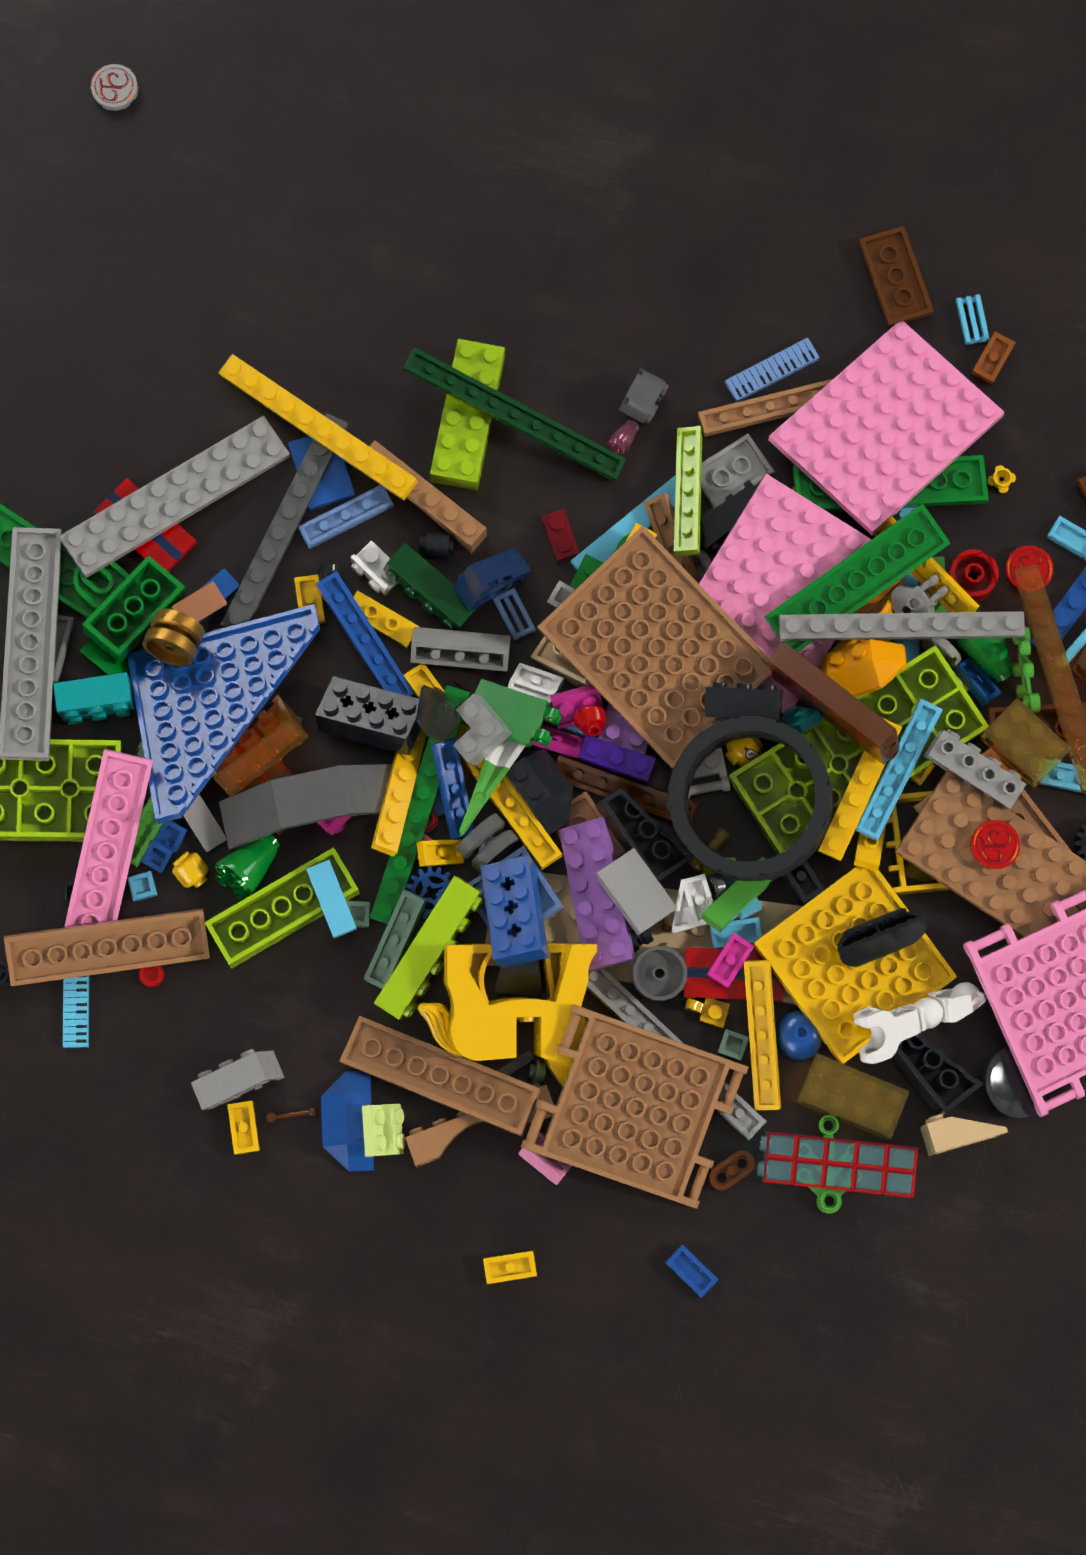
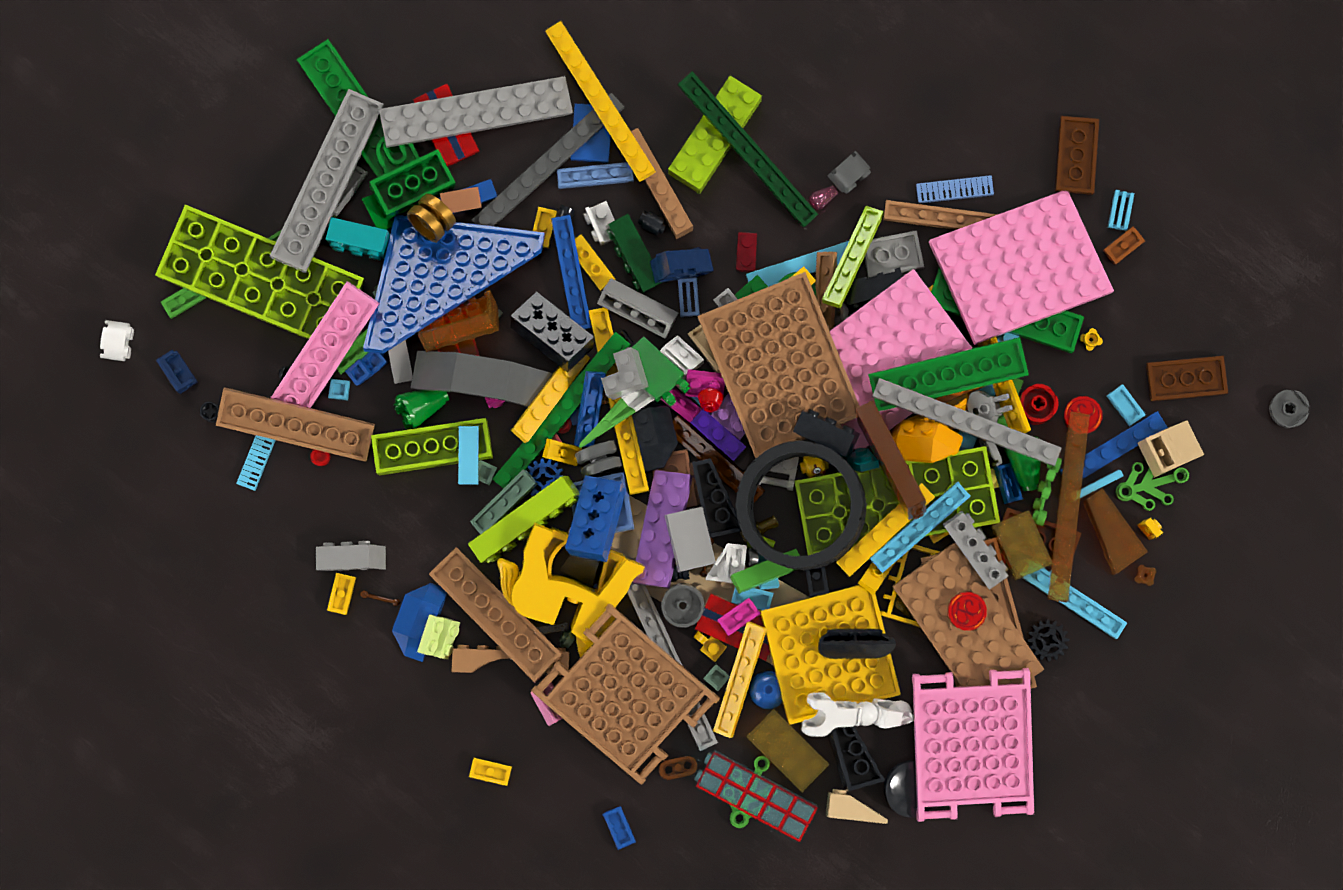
camera: 25 degrees right, 5 degrees up
(190, 869) = (377, 392): yellow head -> none
(436, 714) = (597, 350): clear smoke slope -> none

